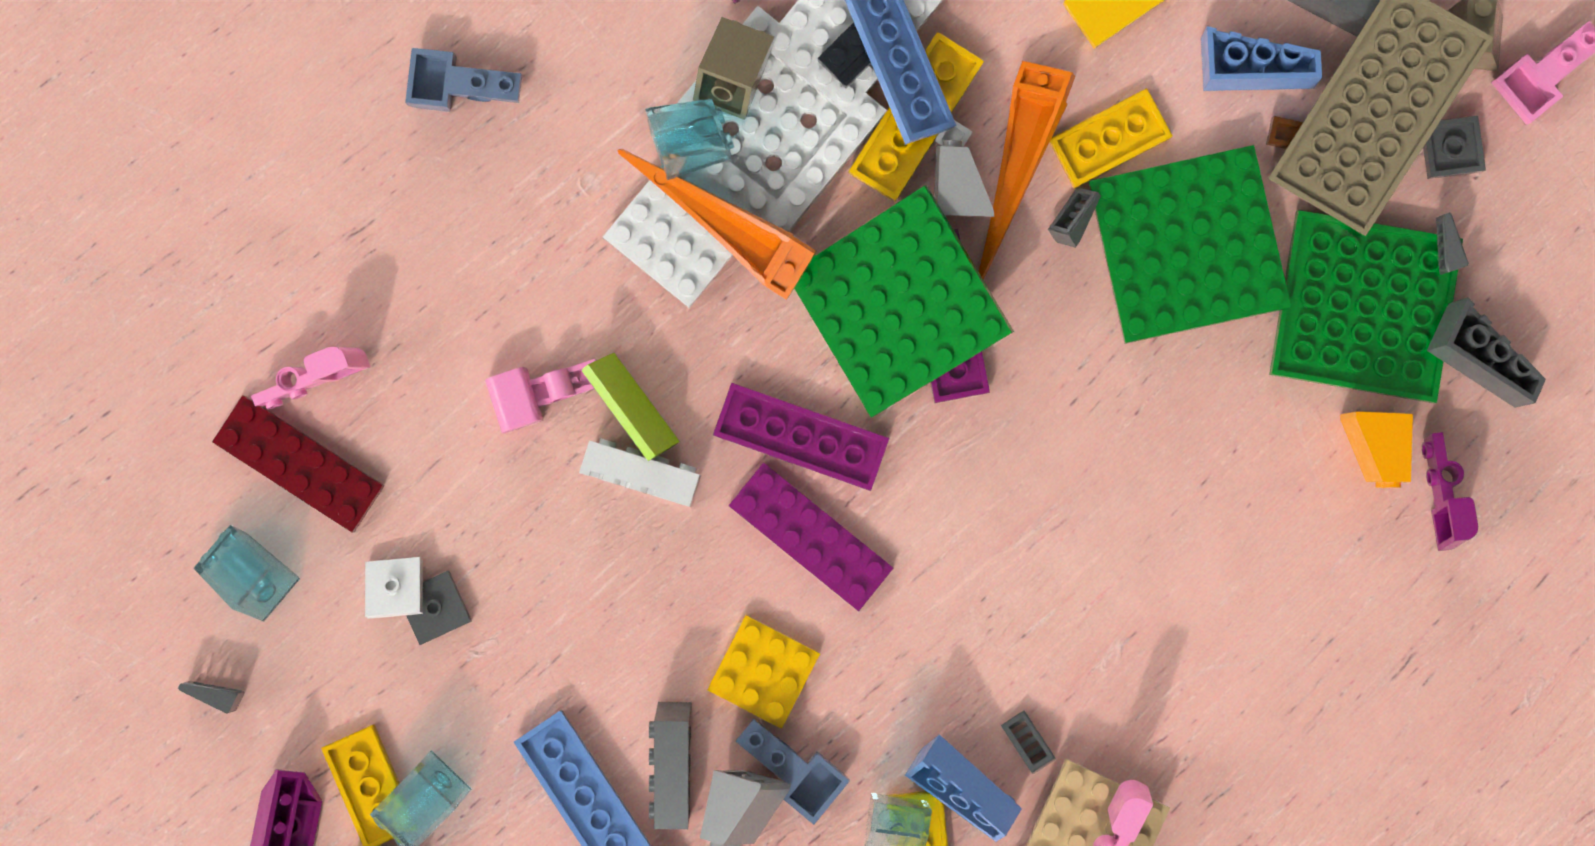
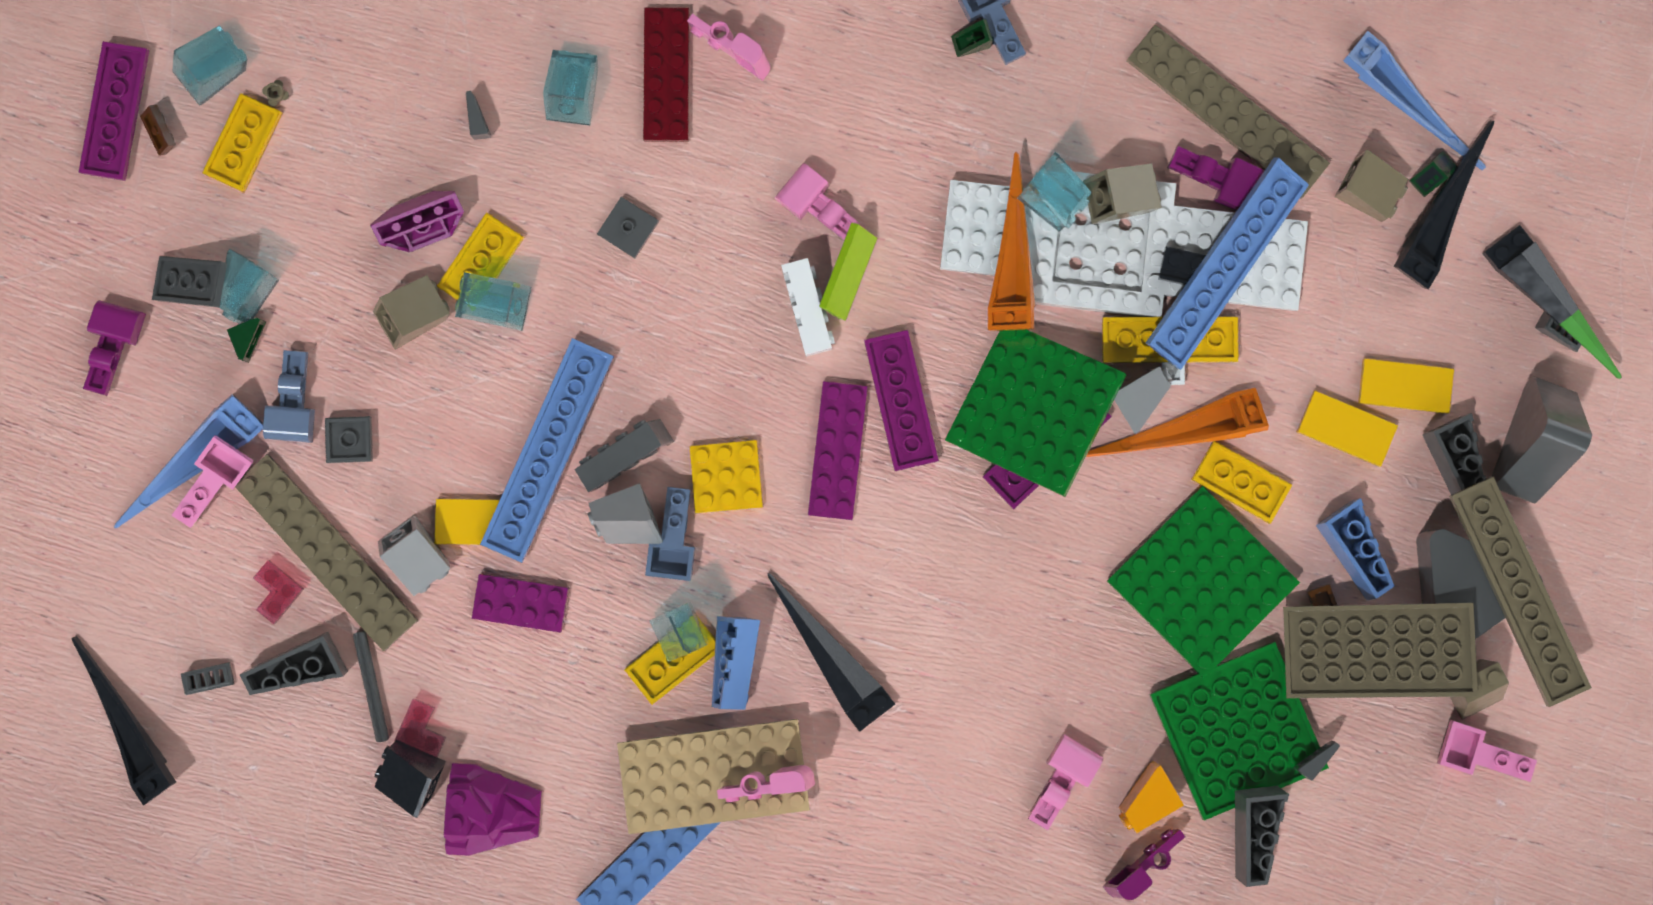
camera: 60 degrees right, 0 degrees up
(394, 587) = (624, 191): white plate -> none
(469, 119) = (972, 39): none -> dark green slope
(1041, 763) = (784, 705): dark grey slope -> none
(1070, 677) = (853, 686): none -> black plate
(1071, 233) = (1163, 491): dark grey slope -> none
(1293, 501) = (1071, 764): none -> bright pink plate
(1454, 148) = (1387, 722): dark grey plate -> none

